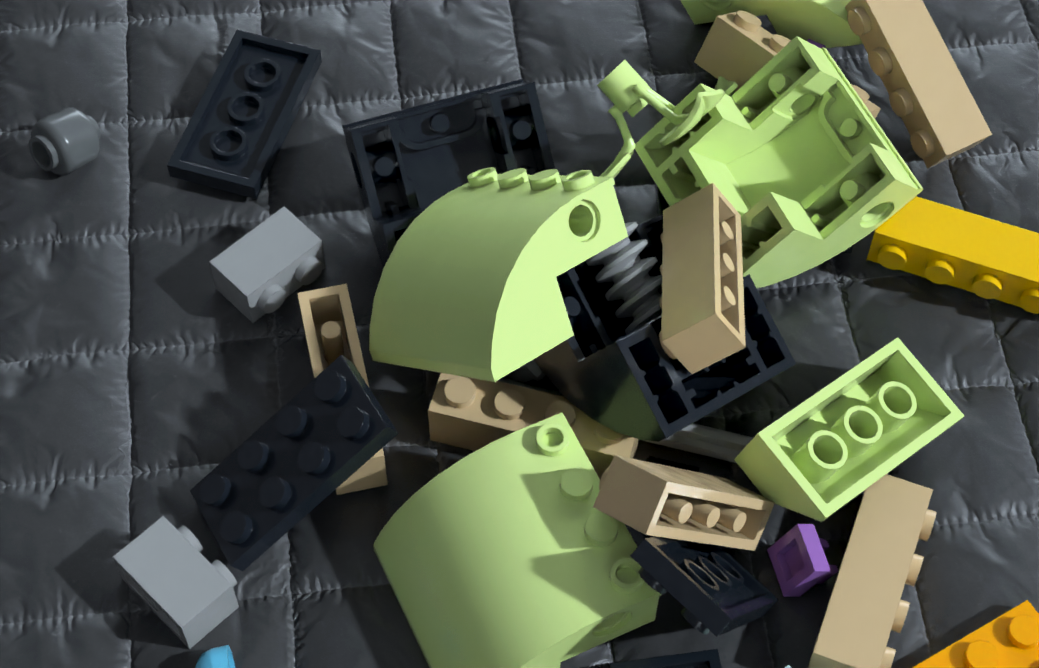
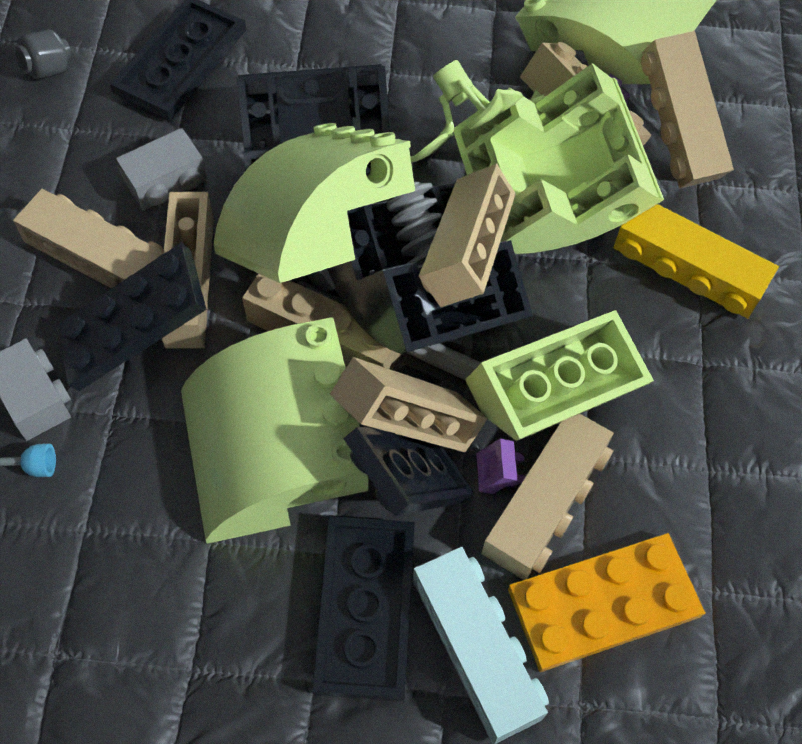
camera: 10 degrees right, 5 degrees up
(198, 377) = (83, 239): none -> tan brick

